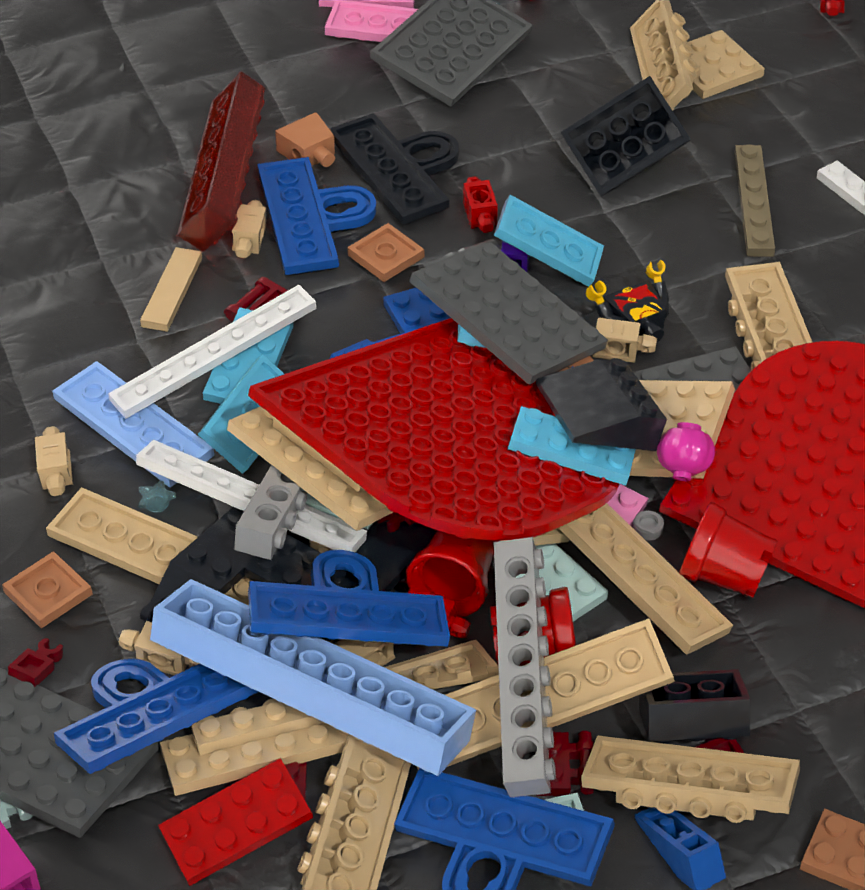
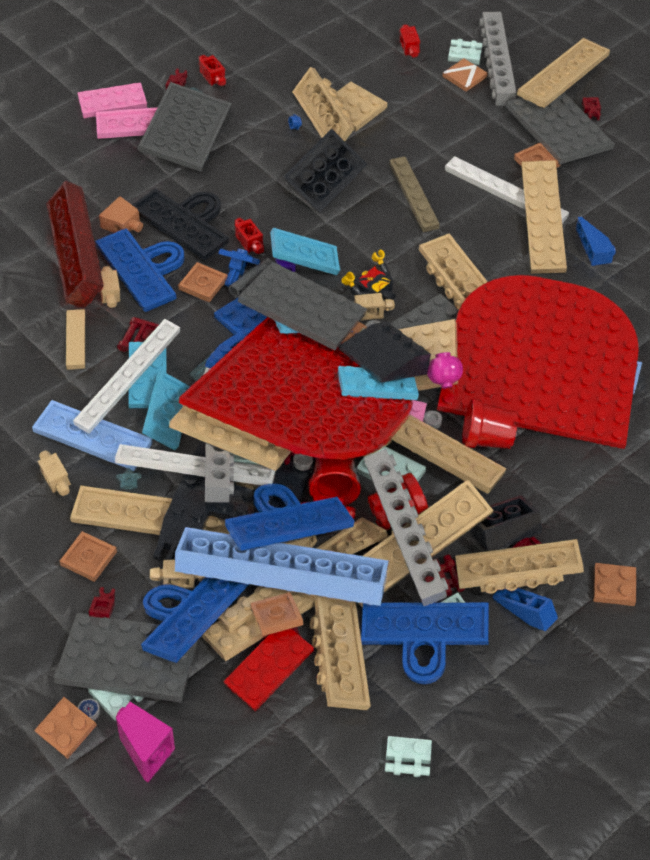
camera: 20 degrees left, 5 degrees up
(273, 744) = (276, 614): none -> nougat plate
(415, 534) = (302, 462): none -> light grey tile
(445, 236) = (237, 264): none -> blue piece
(615, 67) = (294, 122): none -> blue plate

